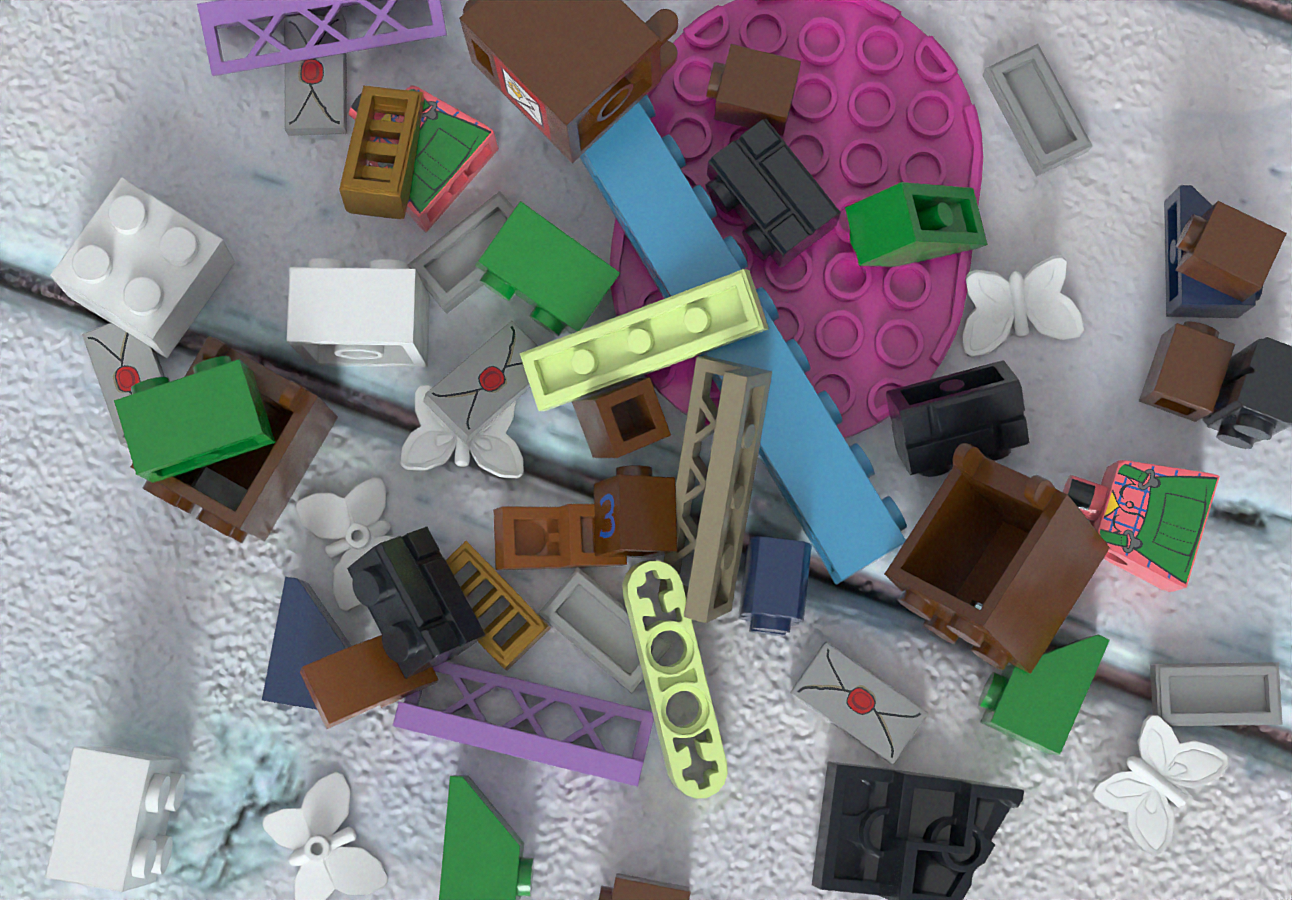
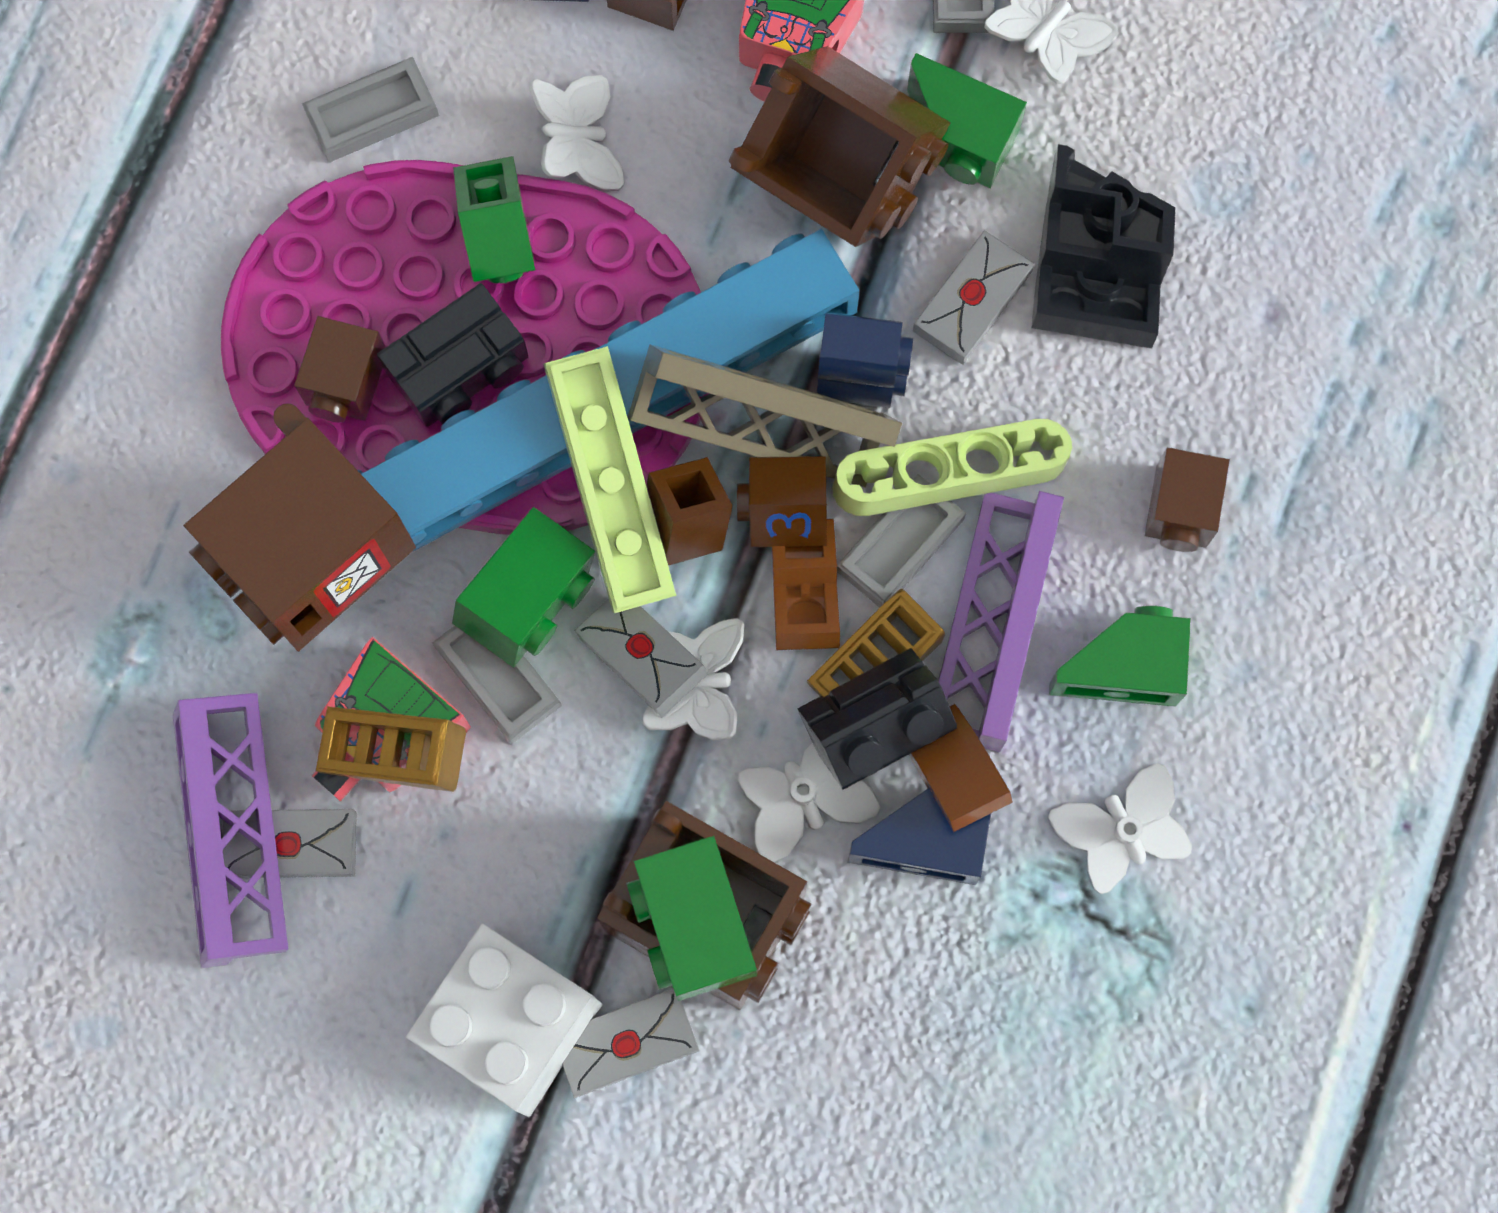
camera: 90 degrees left, 5 degrees down
(115, 818) = (1107, 1028): white brick -> none
(358, 314) = (570, 775): white brick -> none
(968, 407) = (692, 188): black brick -> none

